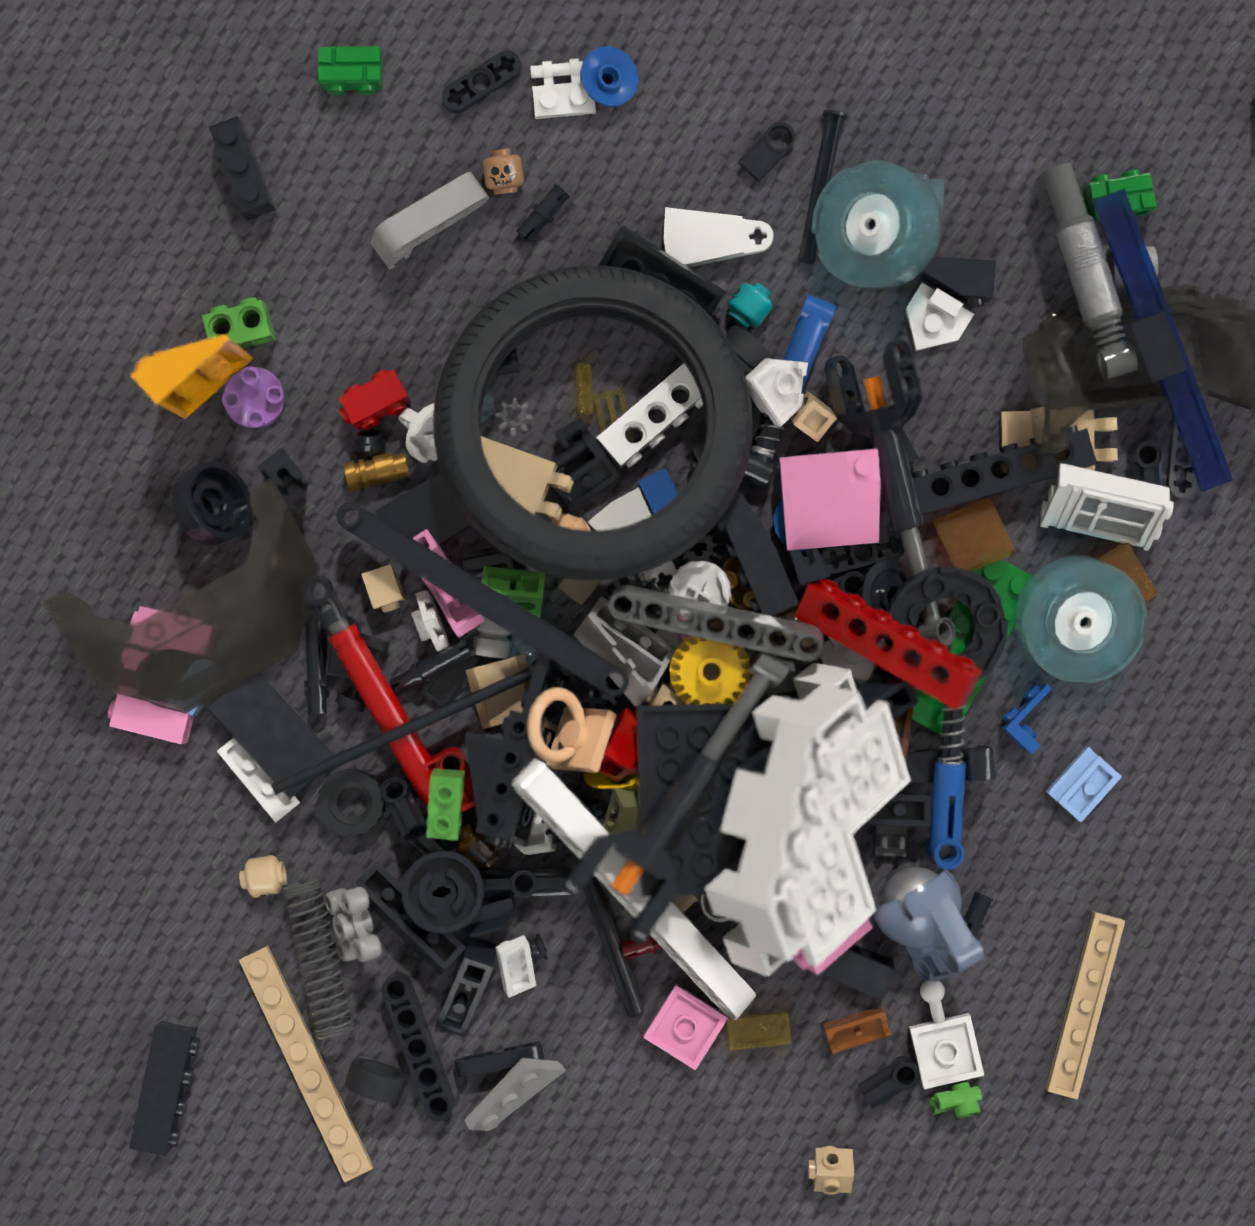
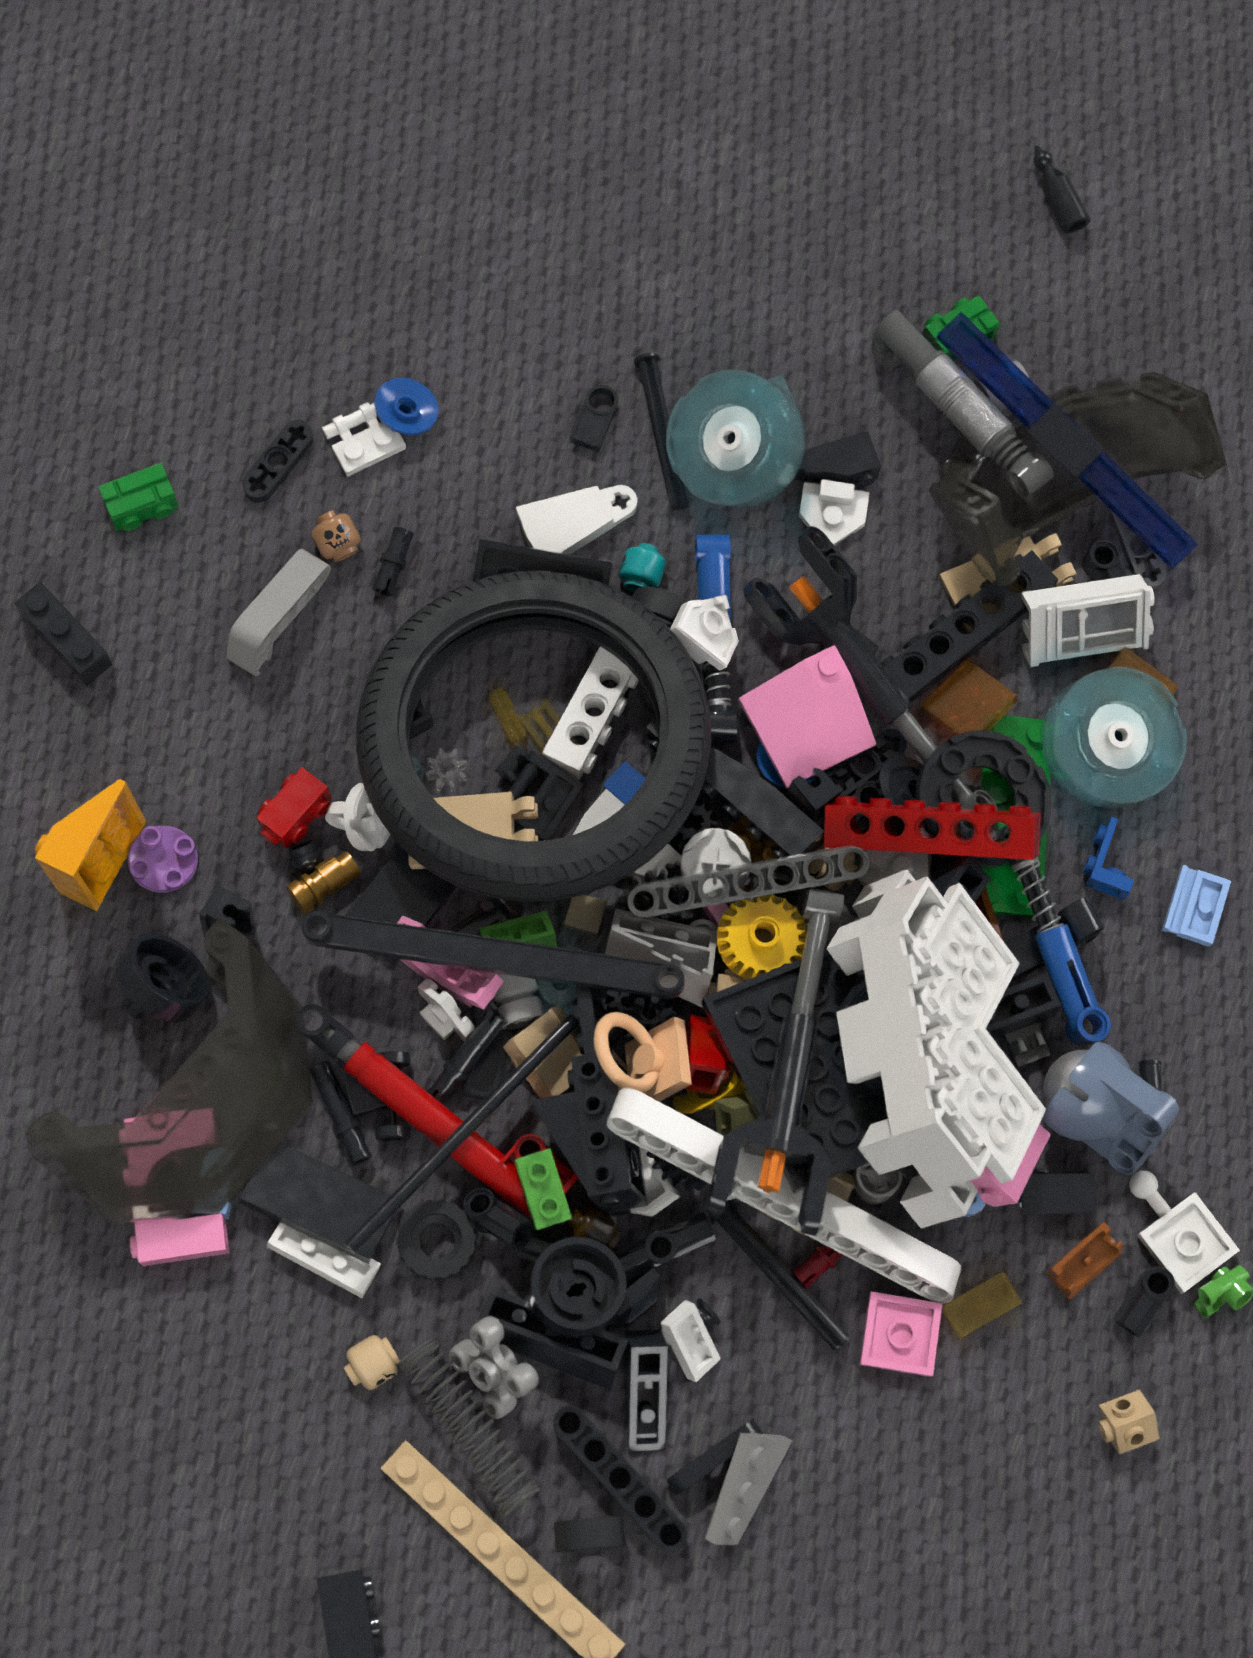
camera: 25 degrees left, 15 degrees down
(237, 317) = (121, 769): bright green brick -> none
(384, 588) = (380, 997): tan brick -> none
(813, 417) = (754, 648): tan brick -> none

